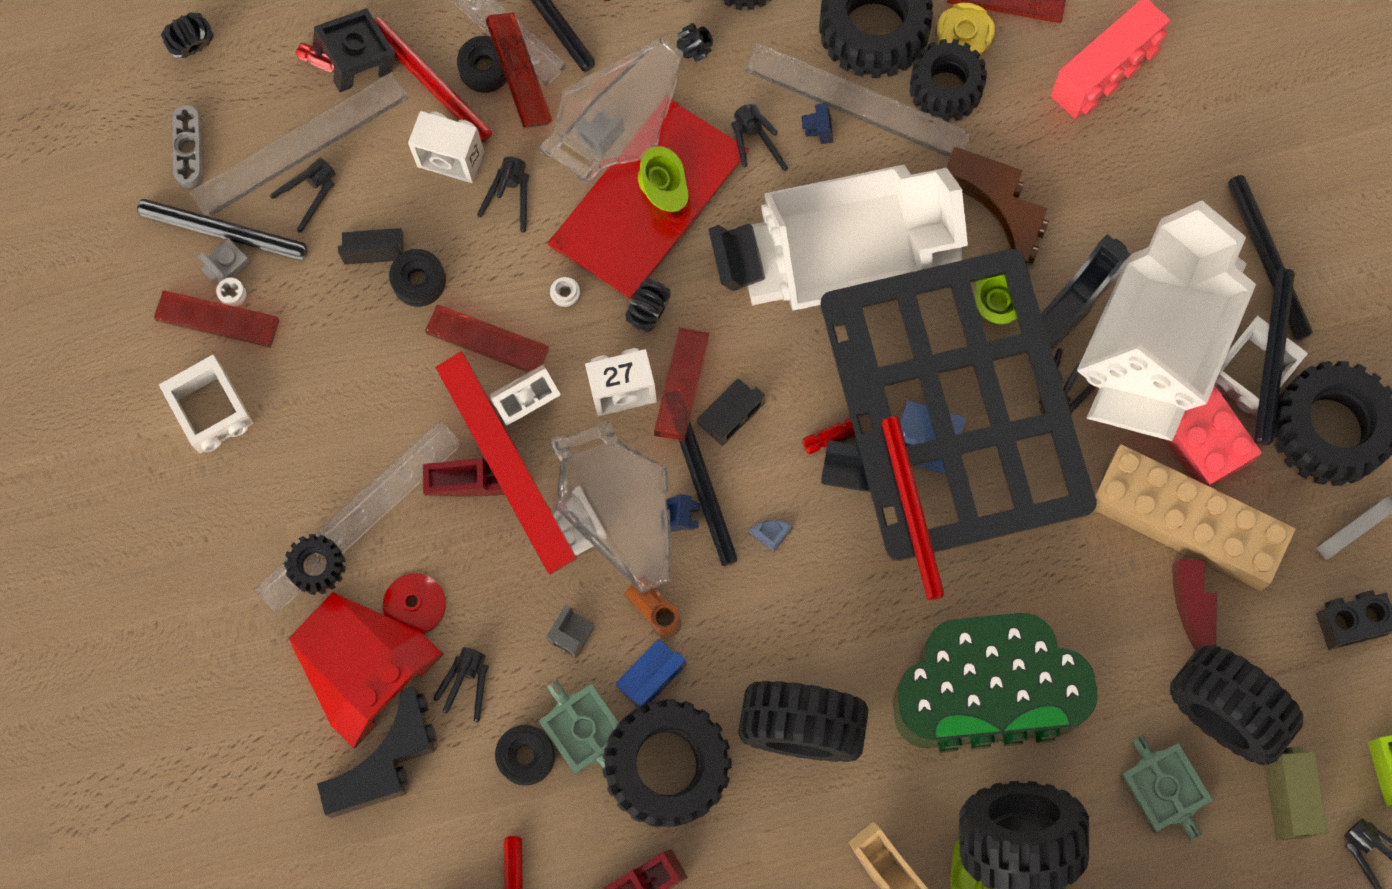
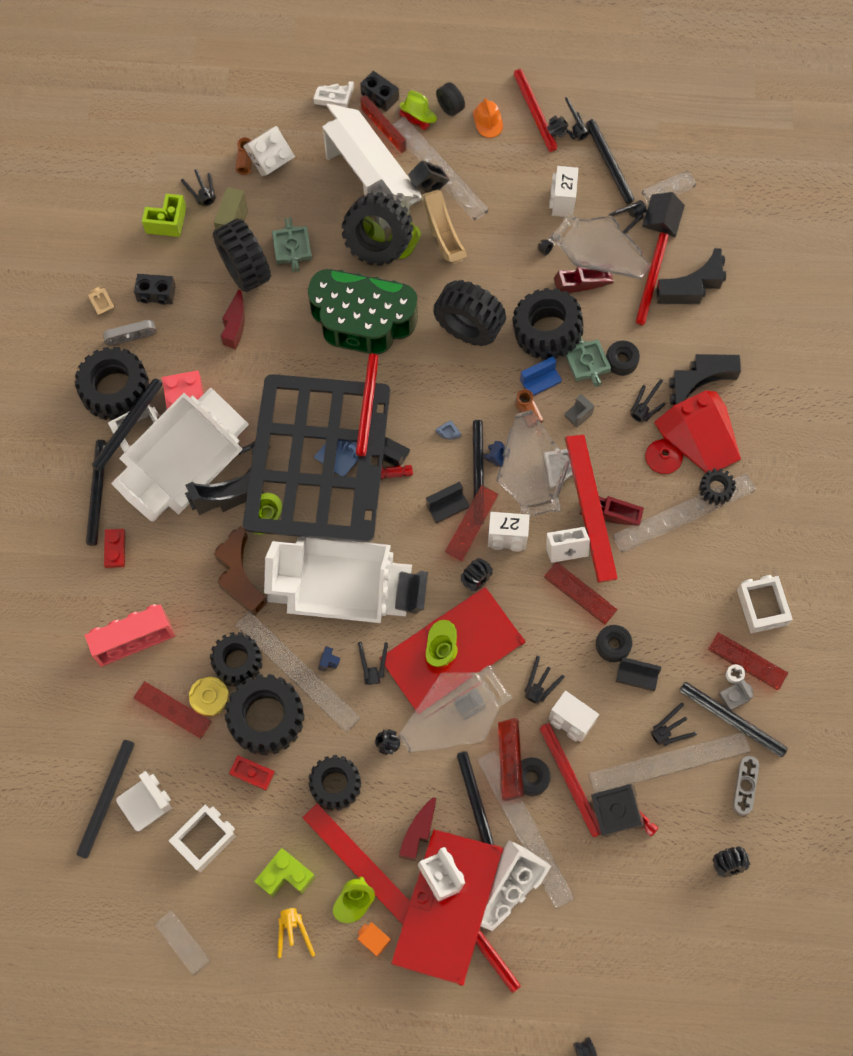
camera: 165 degrees left, 5 degrees down
(561, 284) = (524, 600): white plate -> none
(1192, 518) = (215, 363): tan brick -> none
(1198, 182) = (114, 548): none -> red plate

